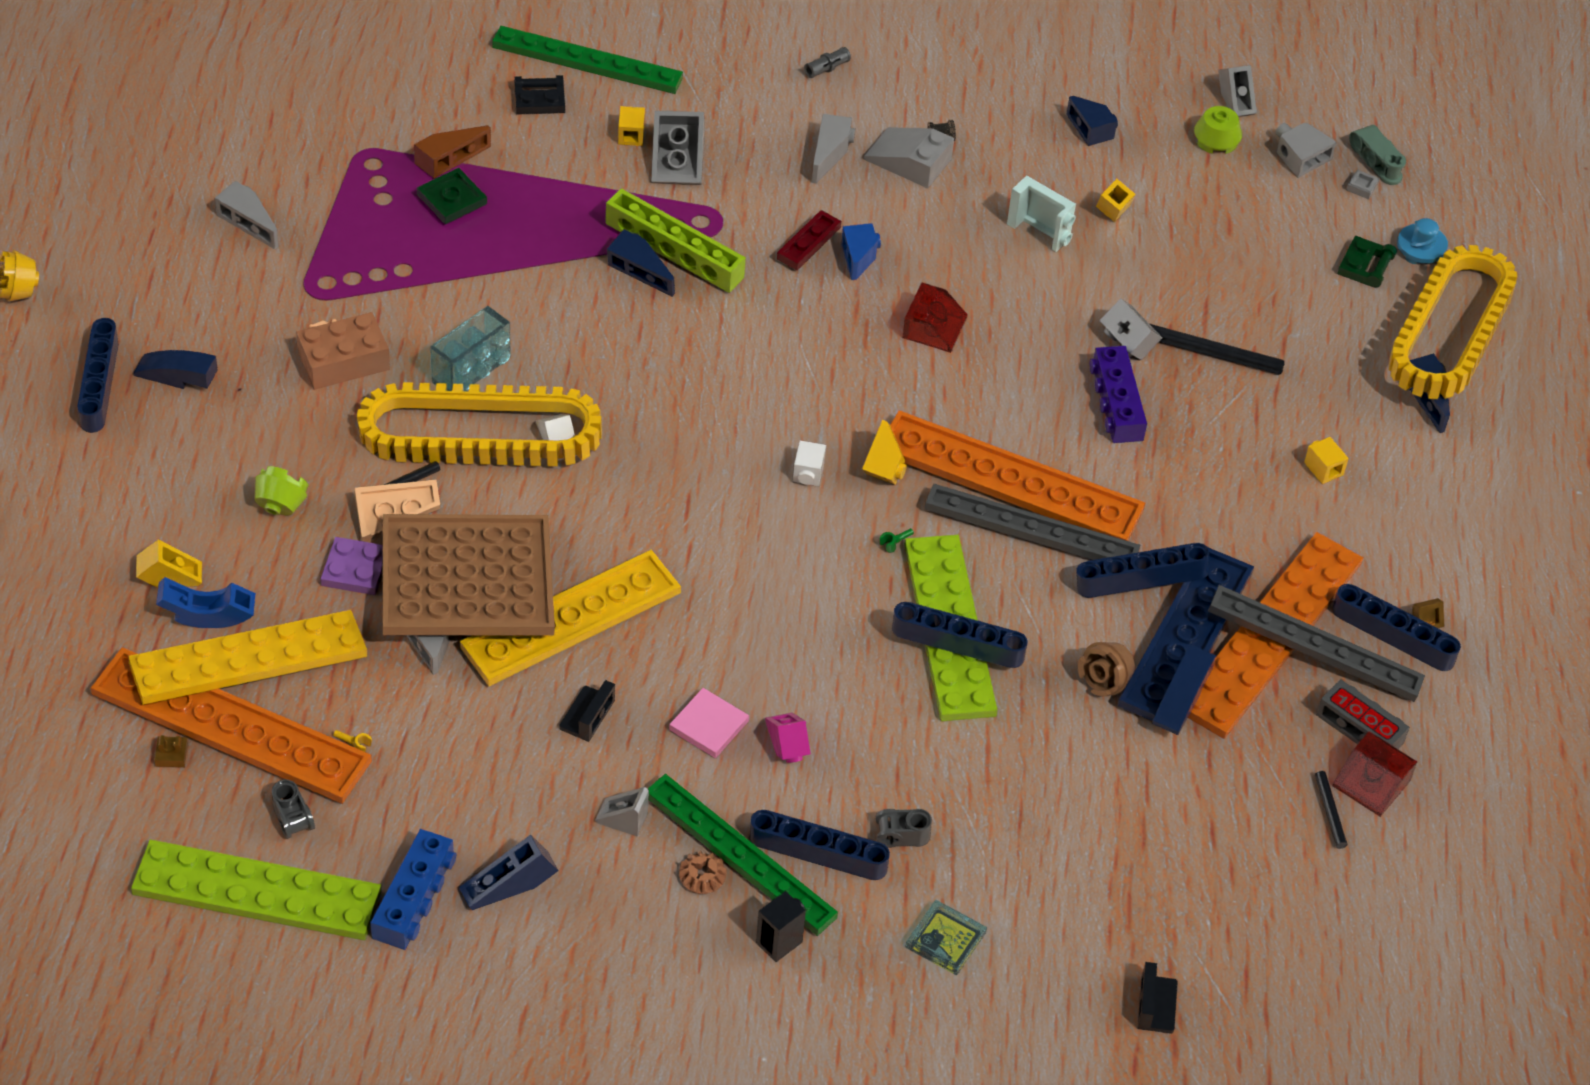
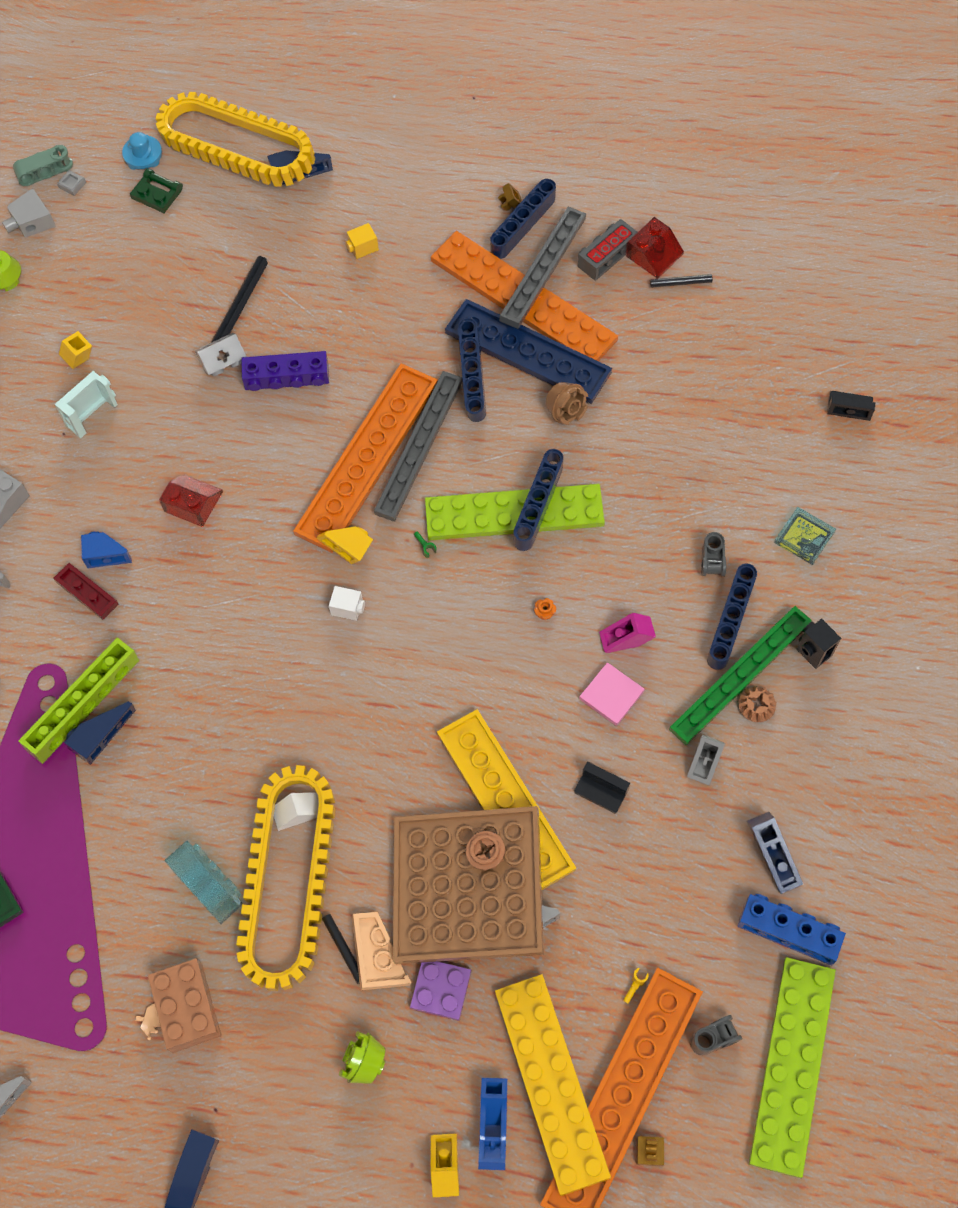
camera: 80 degrees left, 15 degrees up
(505, 573) = (489, 840): none -> nougat gear
(818, 661) = (545, 614): none -> orange plate
(1184, 689) = (591, 352): dark blue slope -> none

